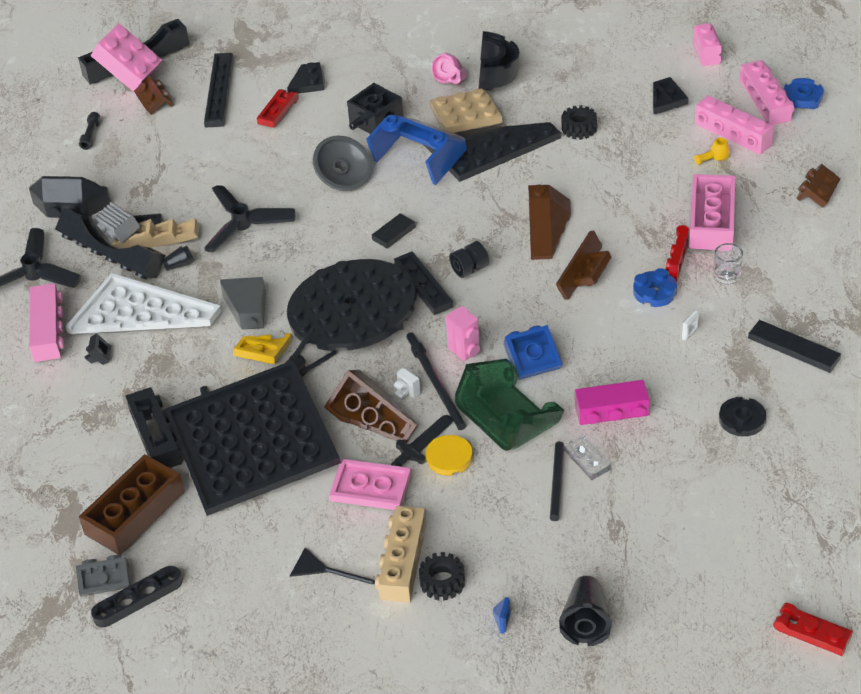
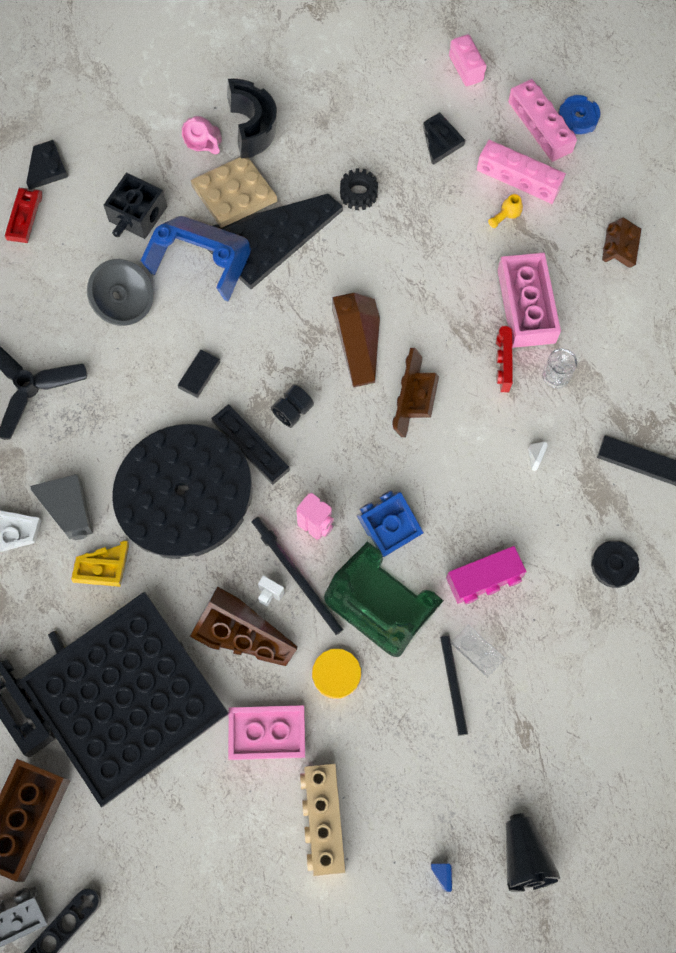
camera: 20 degrees left, 25 degrees up
(300, 360) = (142, 581): black plant -> none
(309, 564) = (229, 847): black piece -> none
(412, 450) = (296, 675): black sword -> none
(445, 587) = (387, 839): black tyre -> none
(644, 288) = (503, 408): blue plate -> none

